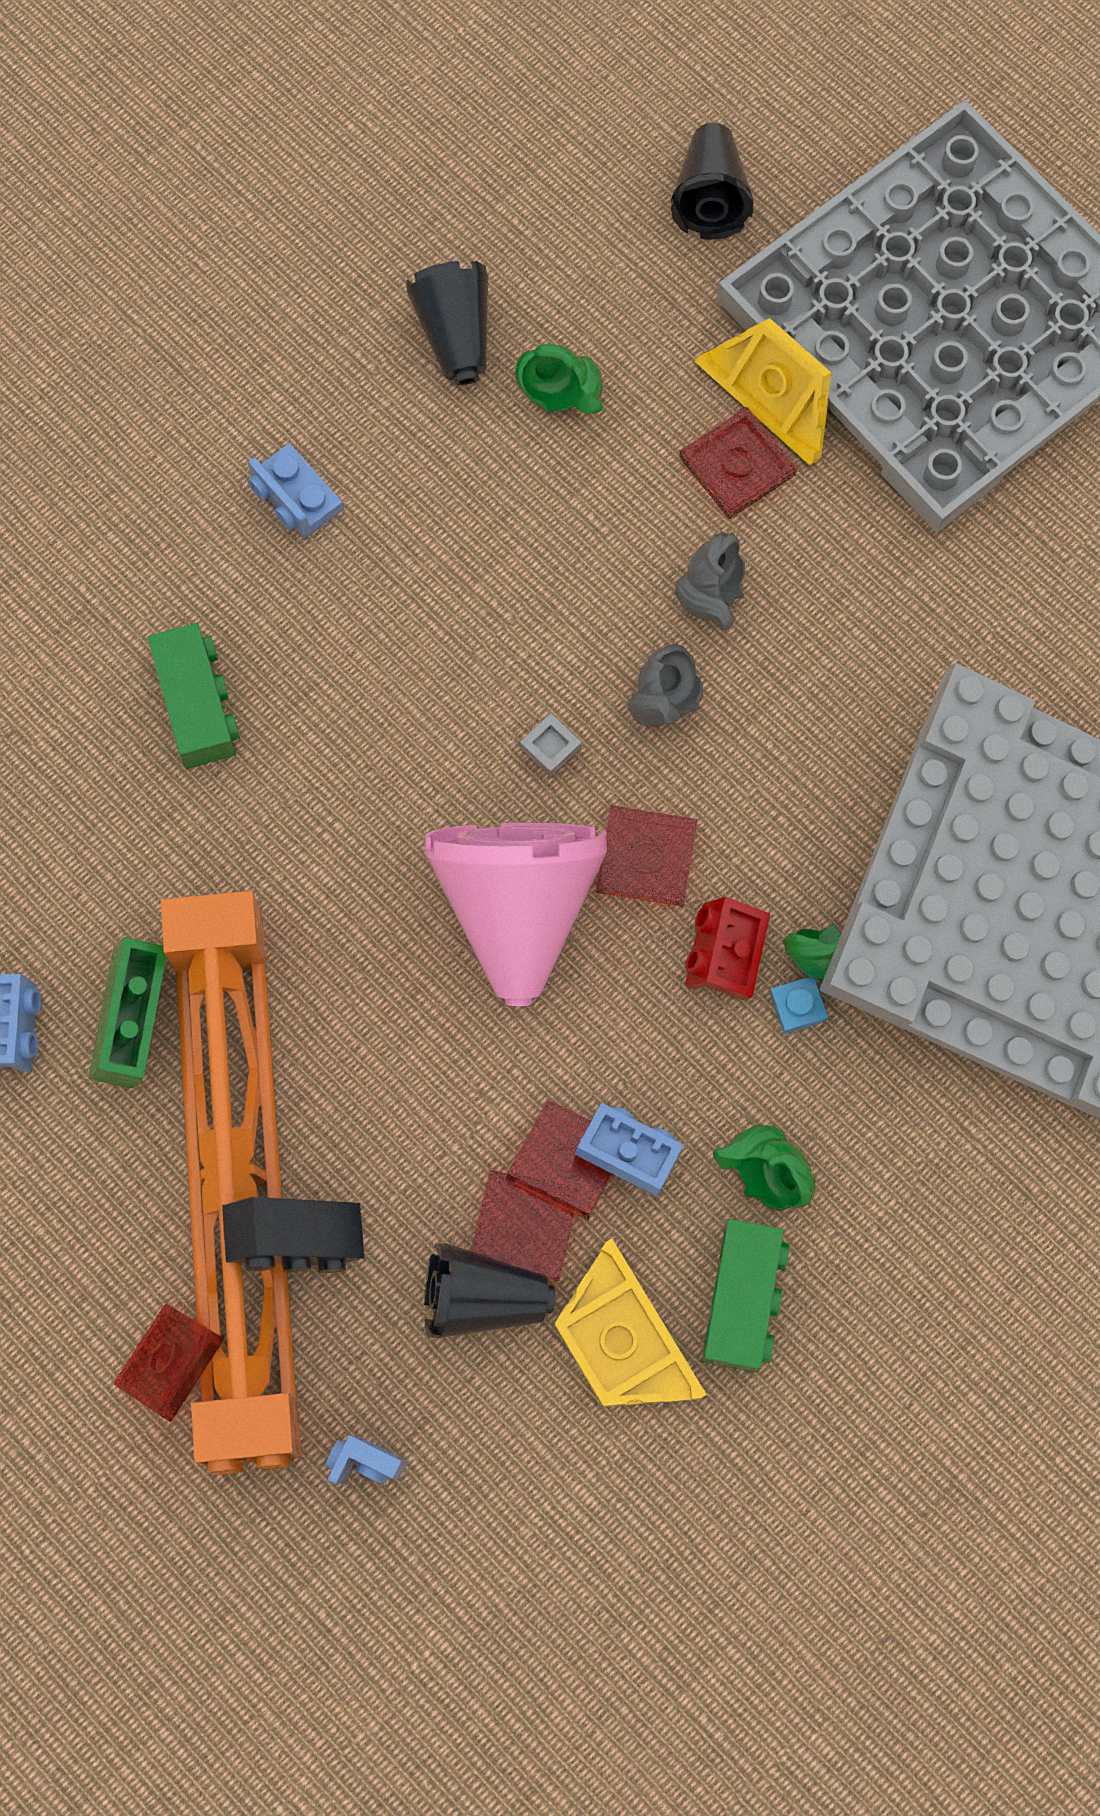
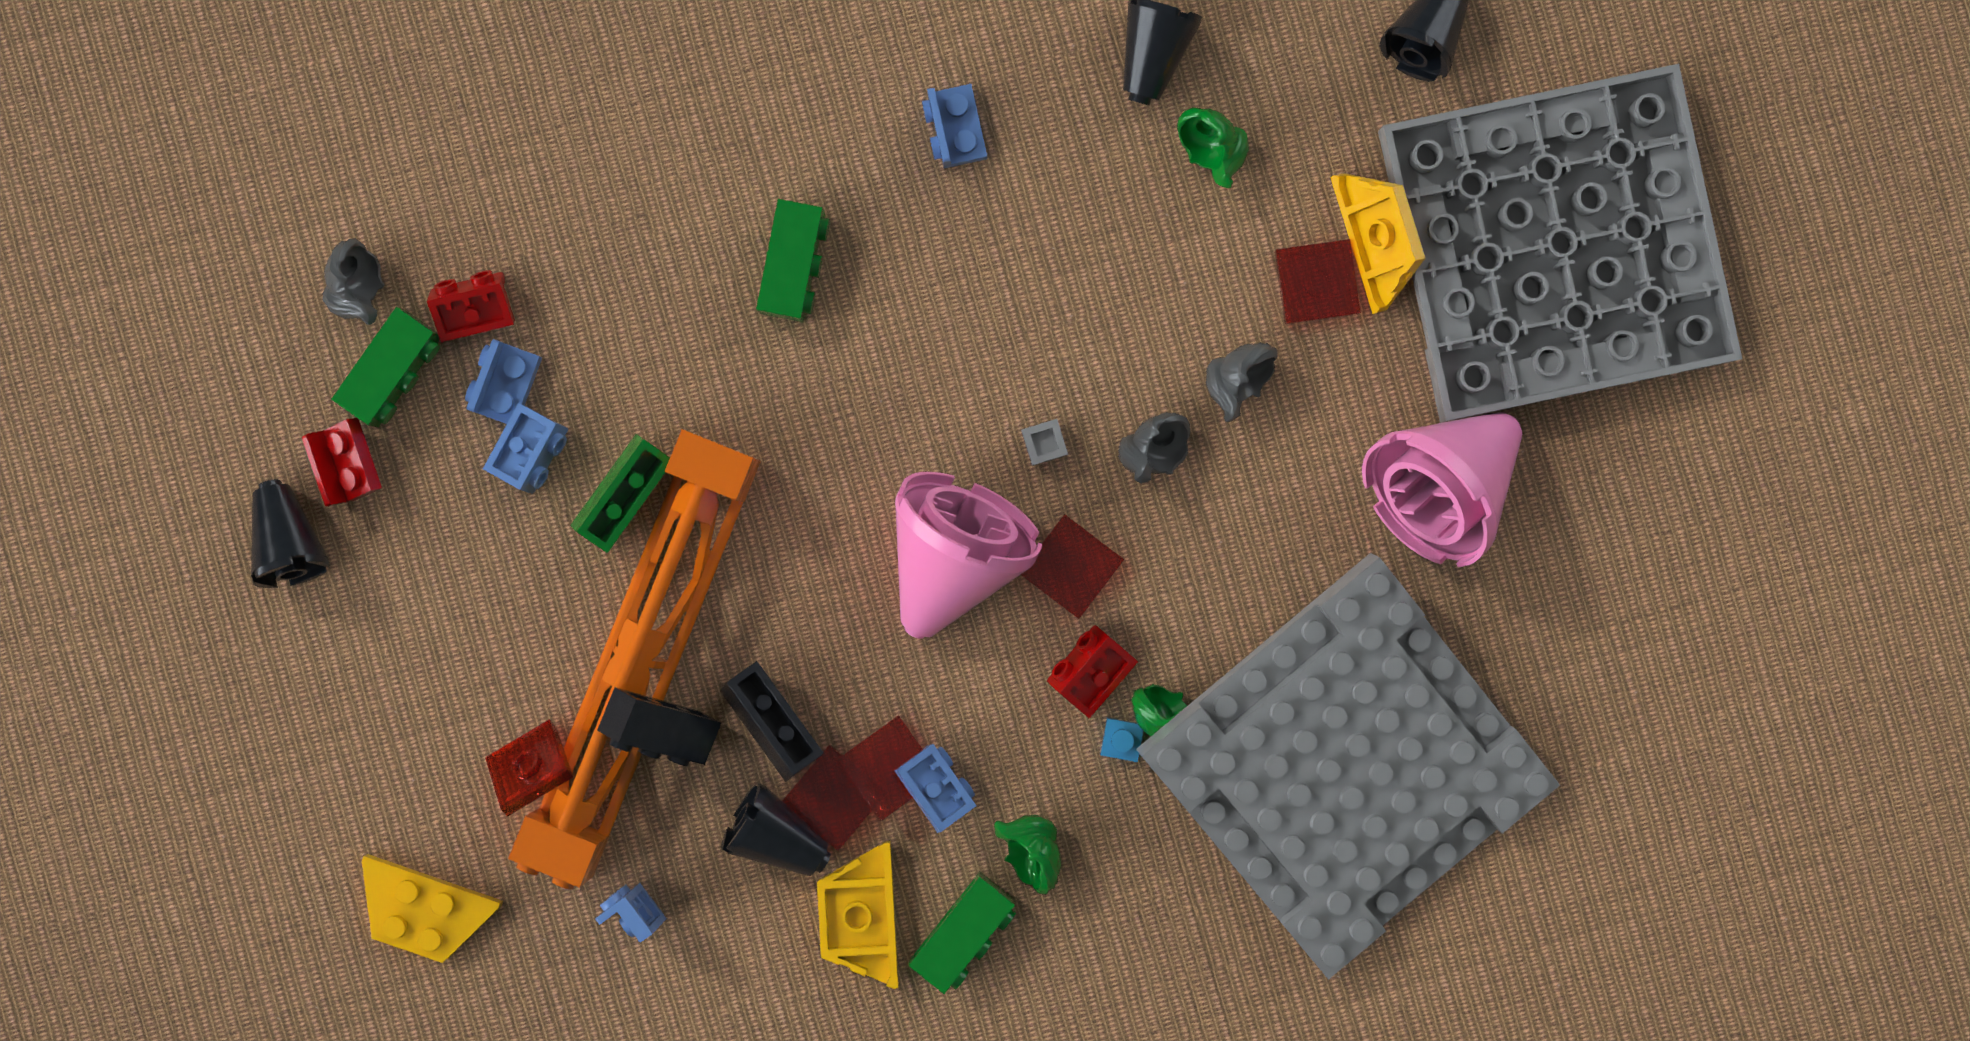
camera: 30 degrees right, 15 degrees up
(122, 1599) = (421, 910): none -> yellow wing
(413, 1171) = (771, 721): none -> black brick
(974, 580) = (1445, 484): none -> bright pink cone

